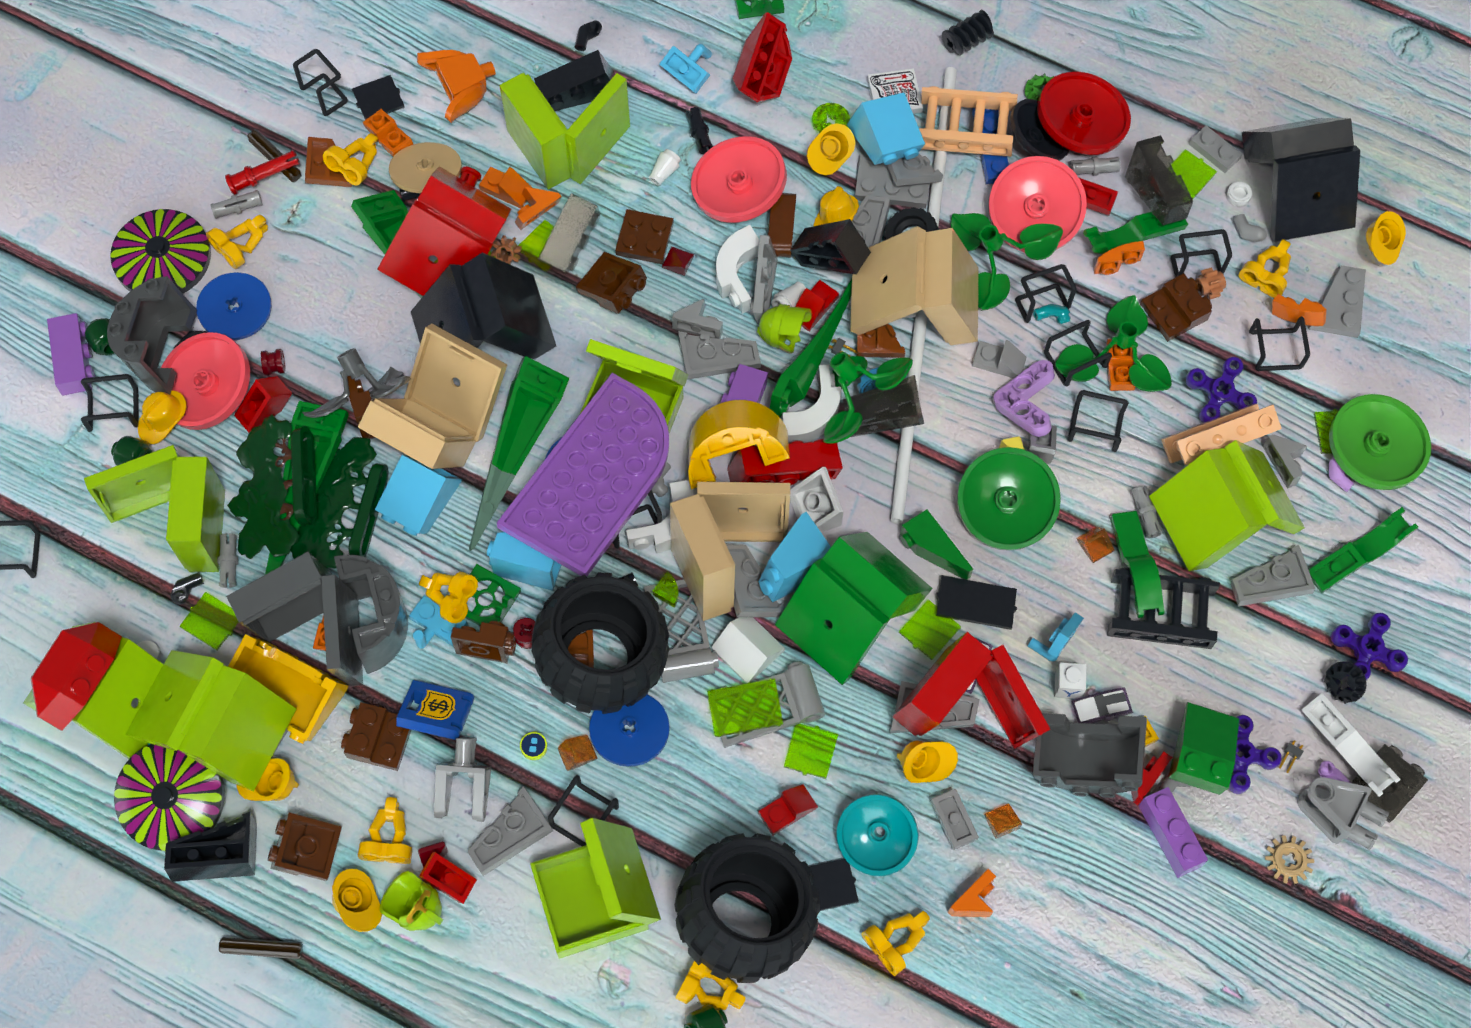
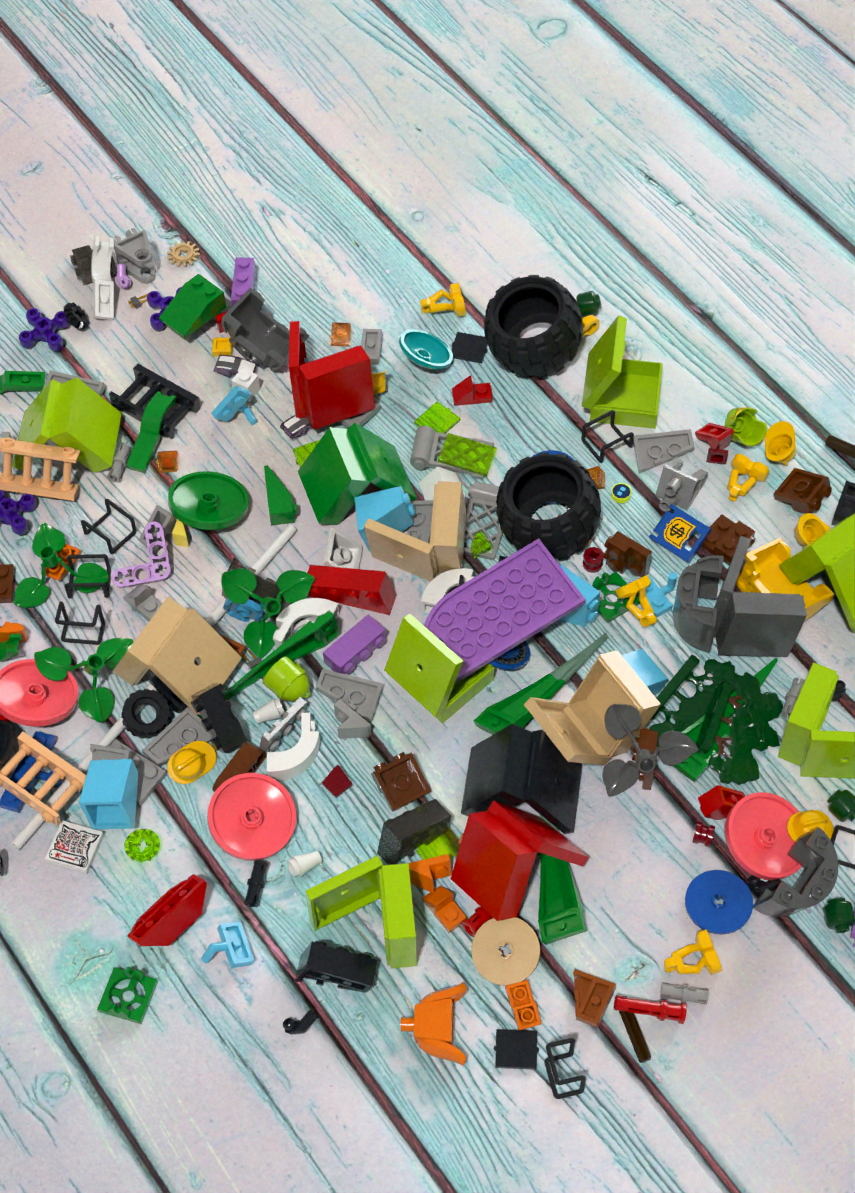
camera: 150 degrees left, 10 degrees down
(161, 246) = (766, 979): dish -> none
(210, 621) = (821, 656): clear neon green piece -> none
(352, 169) = (576, 979): yellow piece -> none
(644, 236) = (352, 814): reddish brown plate -> none
(732, 428) = (378, 598): yellow cylinder -> none
(819, 300) = (252, 700): red slope -> none
(830, 149) = (162, 812): yellow piece -> none
(970, 903) = (389, 302): orange slope -> none
(976, 602) = (268, 452): black piece -> none
(1049, 310) = (77, 616): teal arm -> none

